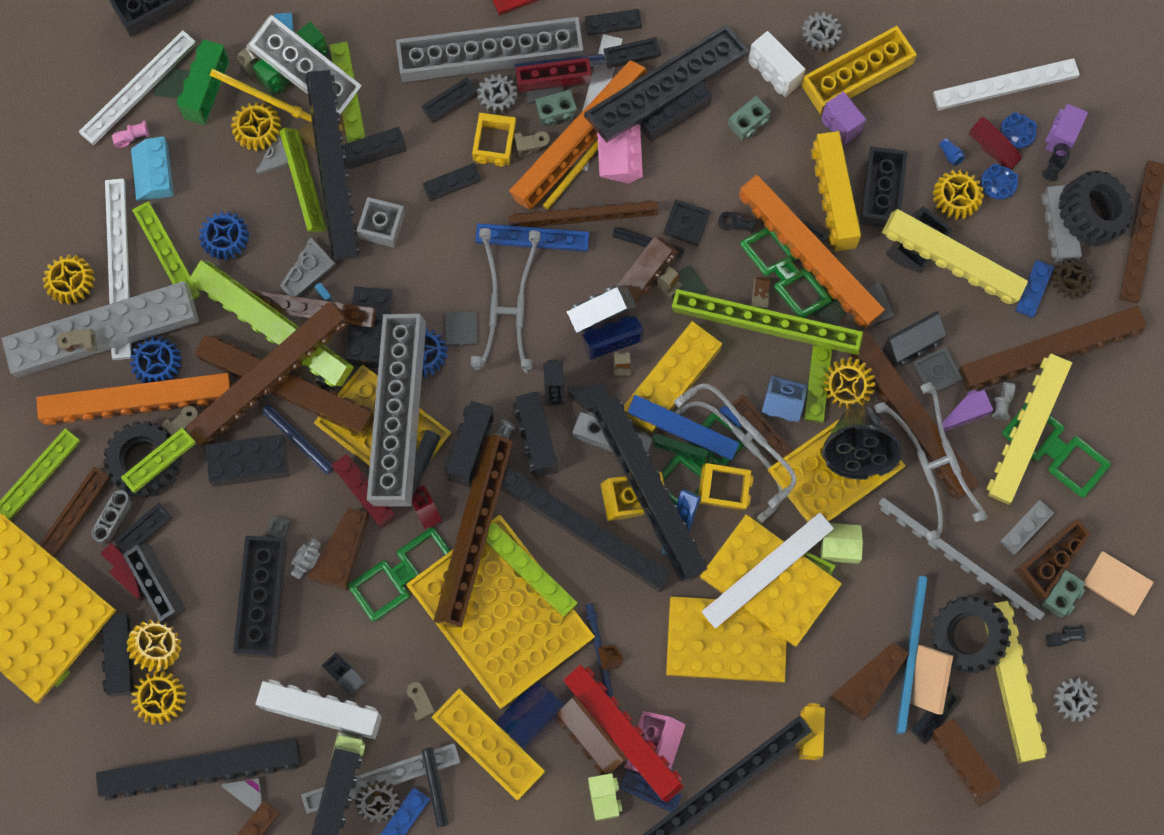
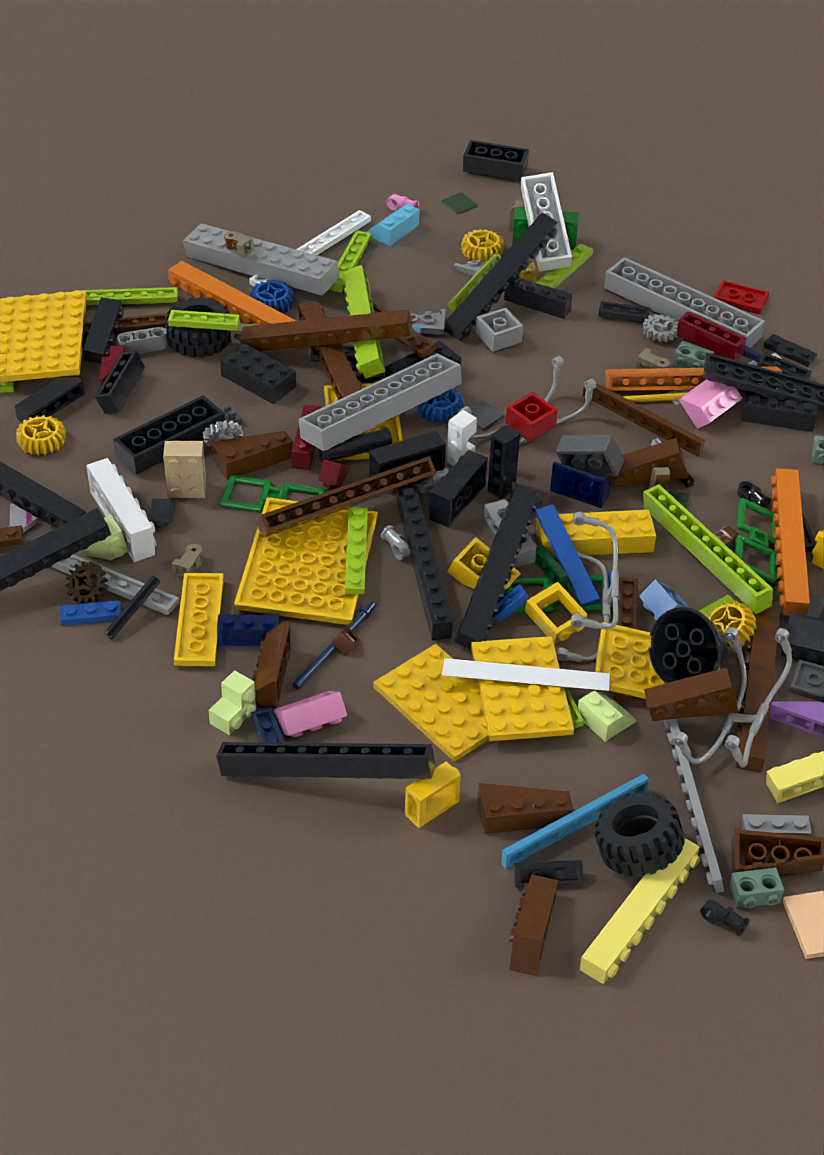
camera: 45 degrees right, 30 degrees down
(54, 282) = (277, 231): yellow gear -> none
(72, 542) = (103, 330): none -> black brick
(137, 88) = (436, 190): white plate -> none
(143, 528) = (159, 360): black plate -> none
(150, 635) = (74, 406): yellow gear -> none
(200, 87) = (477, 205): green brick -> none
(229, 230) = (393, 275): blue gear -> none
(295, 111) = (509, 240): yellow bar -> none
(304, 445) = (303, 388): dark blue axle -> none
(327, 627) = (185, 469): none -> tan brick
(451, 182) = (573, 348): black plate -> none
(493, 386) = (460, 429): none -> white arch
(495, 122) = (631, 333): yellow window -> none
(512, 304) = (531, 416): none -> red brick
(539, 527) = (396, 542): none -> light grey connector
(549, 238) = (596, 407): blue plate -> none
(621, 364) = (569, 498): dark tan leg -> none
(623, 733) = (294, 675): red brick -> none
(686, 222) = (714, 472): black tile -> none
(897, 485) = (692, 697): none -> reddish brown wedge
(931, 679) = (570, 836): light nougat tile -> none
(1076, 691) = (681, 964): light grey gear -> none

